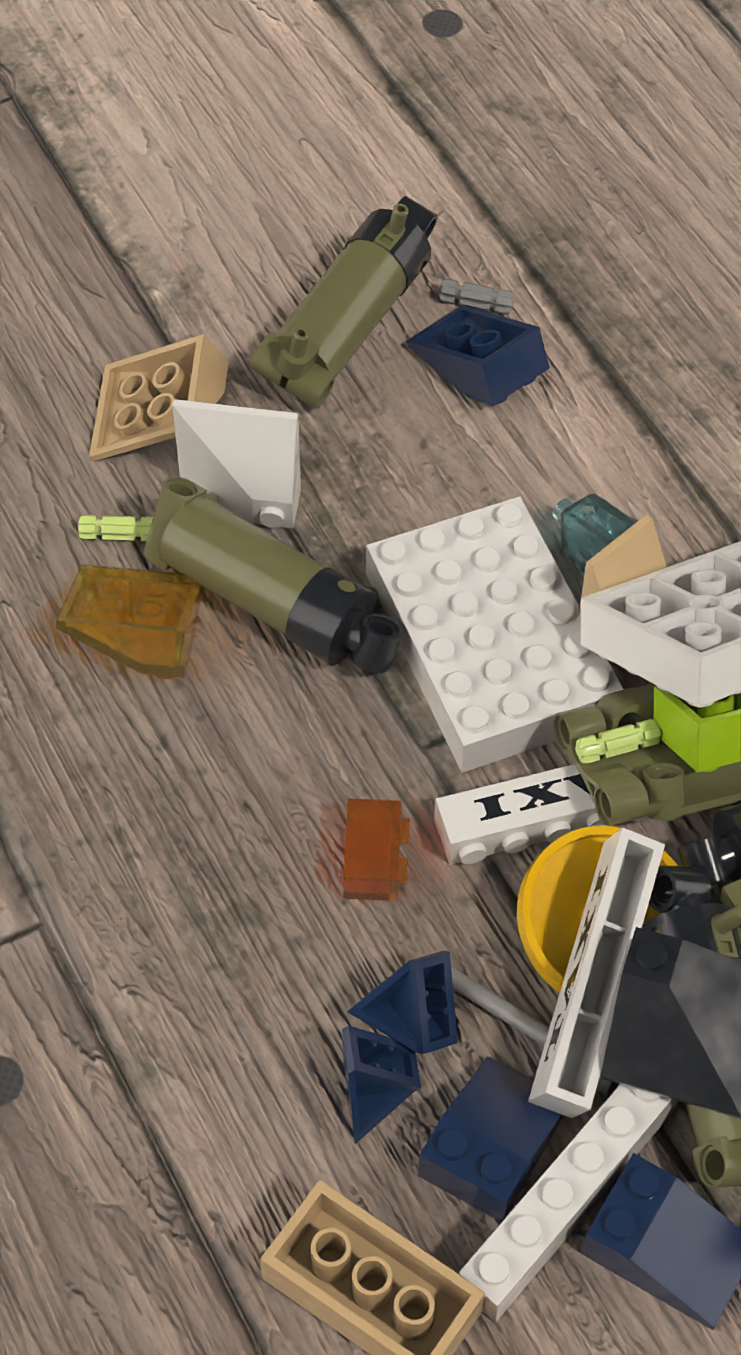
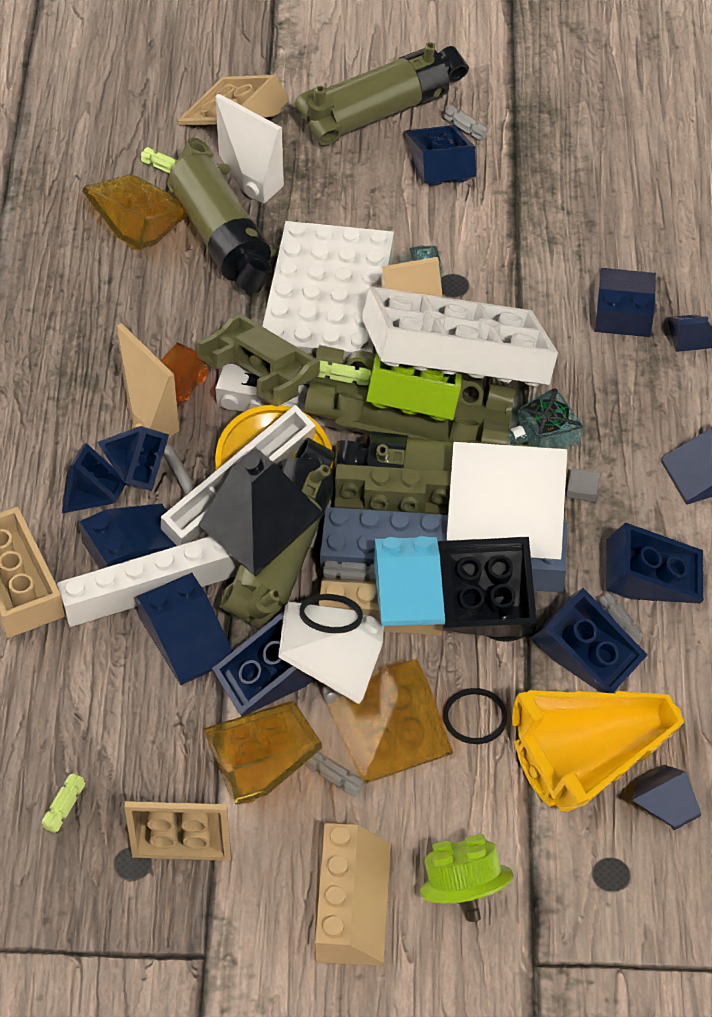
camera: 30 degrees right, 5 degrees down
(363, 893) = (147, 386): none -> tan slope
(499, 765) = (265, 354): none -> olive bracket

